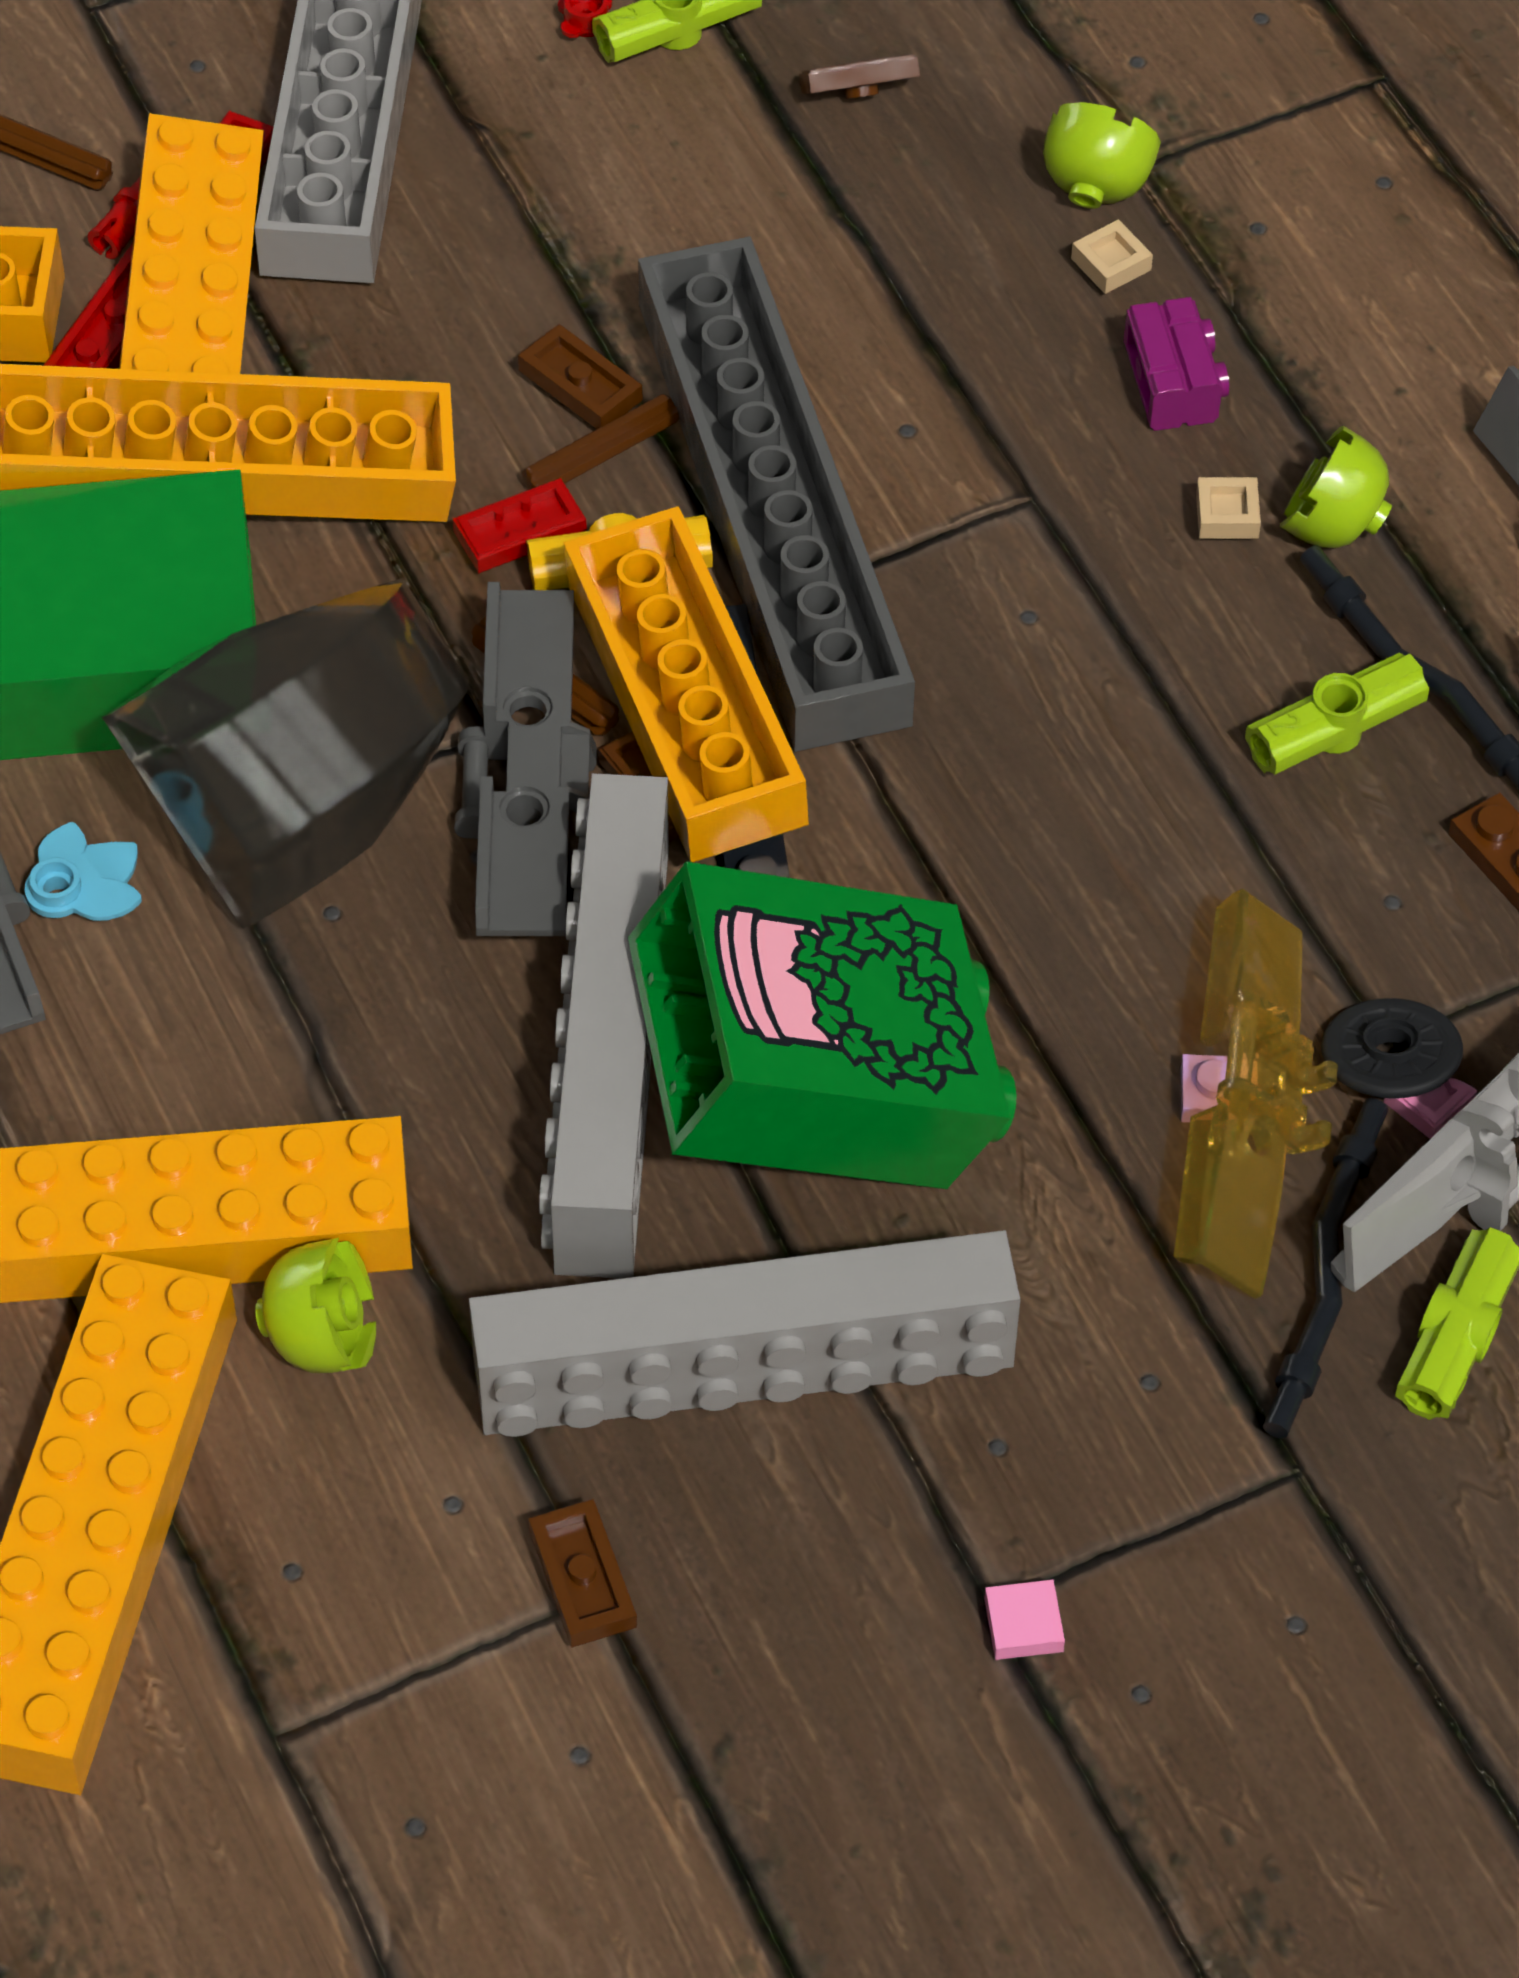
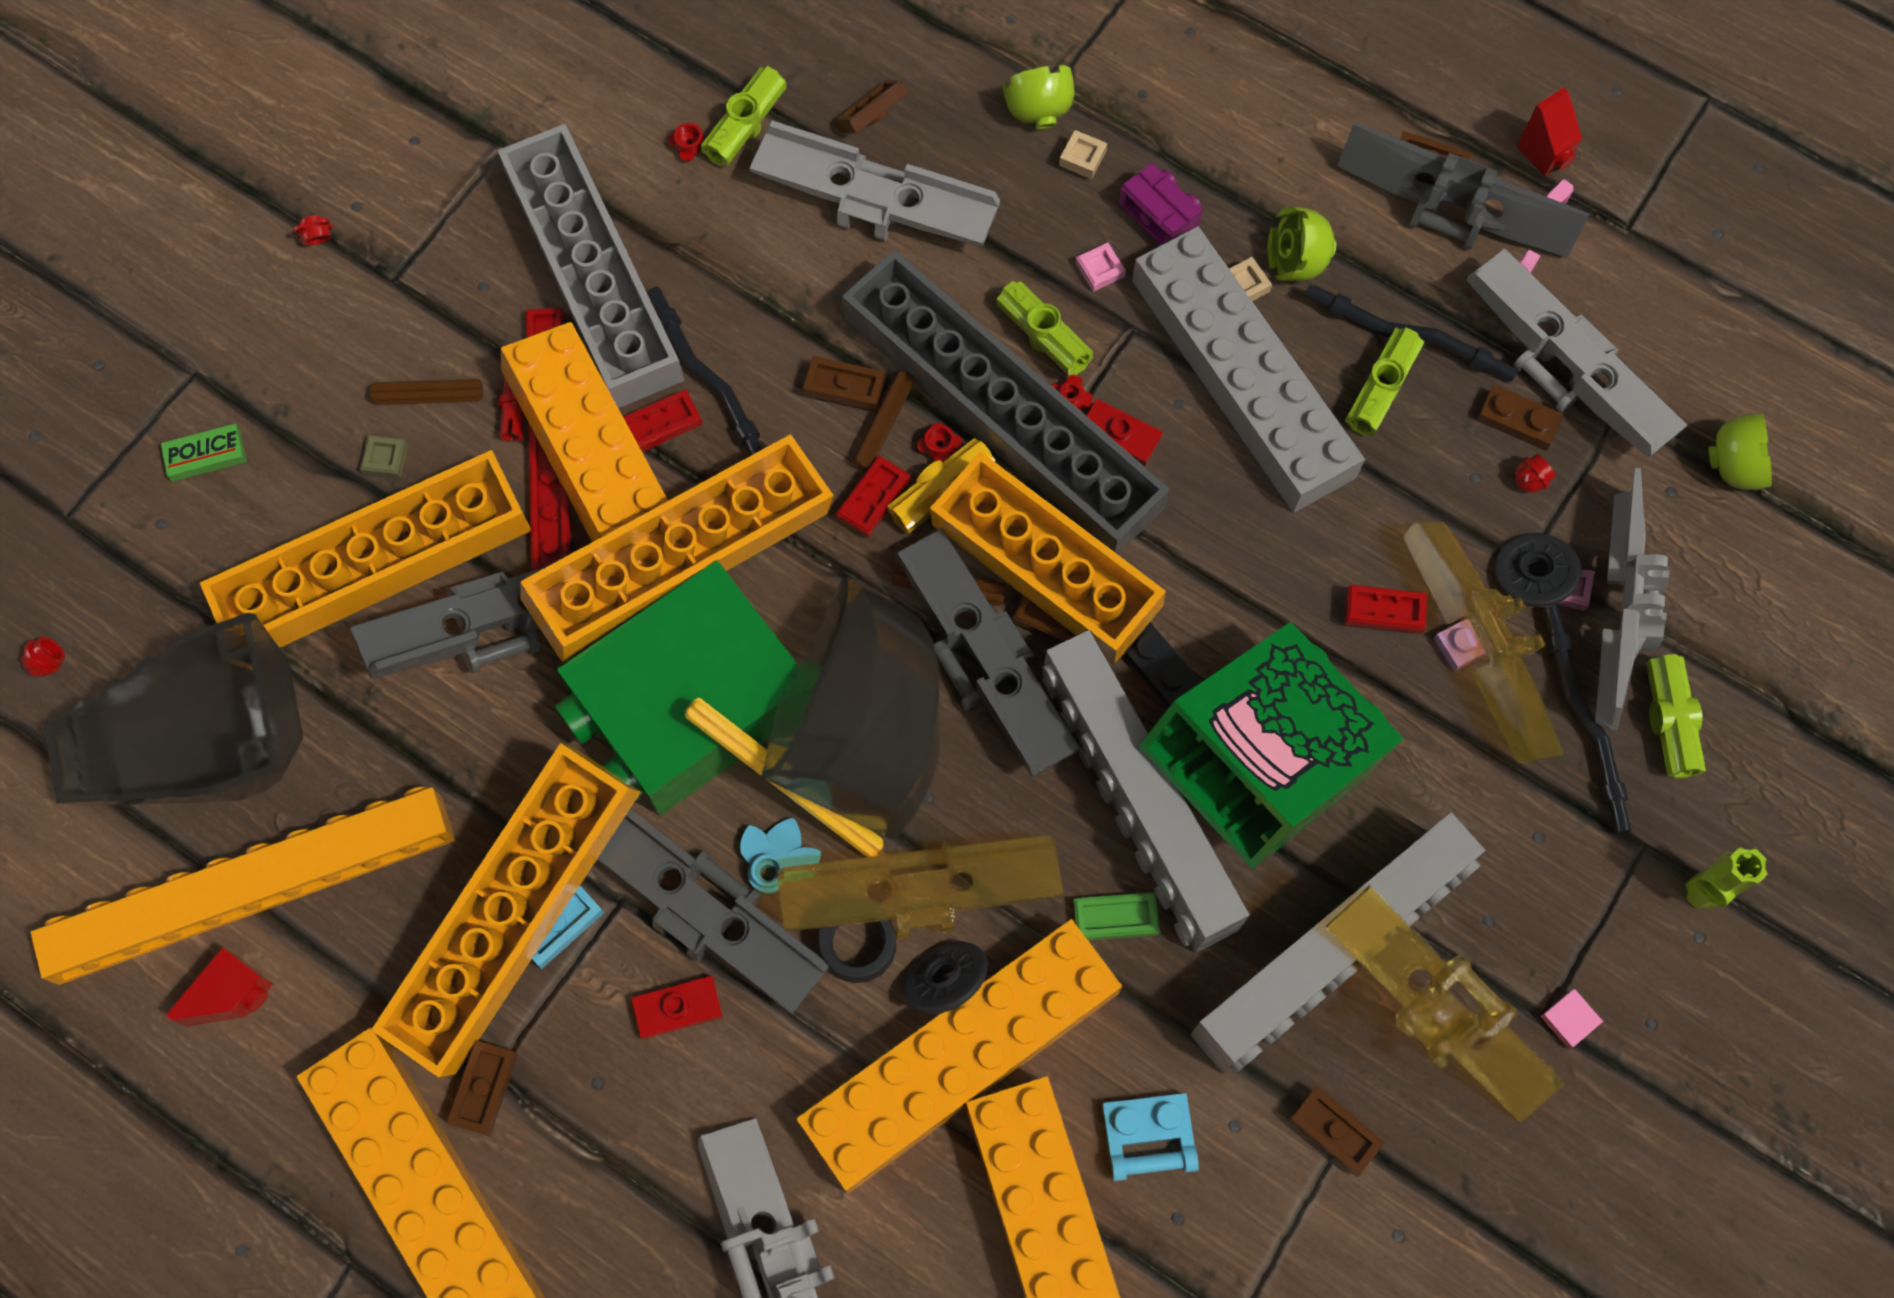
camera: 30 degrees left, 15 degrees up
(100, 981) = (861, 973): none -> black tyre
(111, 689) = (754, 756): none -> yellow axle
(188, 1110) = (968, 969): none -> black wheel
(230, 990) = (838, 894): none -> clear yellow piece
(305, 313) = (663, 420): none -> red plate
(316, 1308) = (1096, 1060): lime cylinder -> none
(332, 1432) = (1148, 1122): none -> medium azure plate
(403, 210) = (745, 429): none -> black bar
(476, 1172) = (1117, 916): none -> bright green tile
(653, 496) = (941, 433): none -> red plate
(784, 170) = (875, 190): none -> light grey piece
(870, 1597) = (1435, 1015): none -> clear yellow piece
(882, 532) = (1074, 386): none -> red plate
(898, 432) = (1057, 340): none -> lime piece
(922, 611) = (1129, 432): none -> red plate
(1038, 403) = (1100, 267): none -> bright pink tile
(1131, 990) = (1386, 609): none -> red plate
(1146, 610) = (1247, 369): none -> light grey brick
(1355, 1523) = (1726, 878): none -> lime piece
(1474, 928) = (1534, 474): none -> red plate

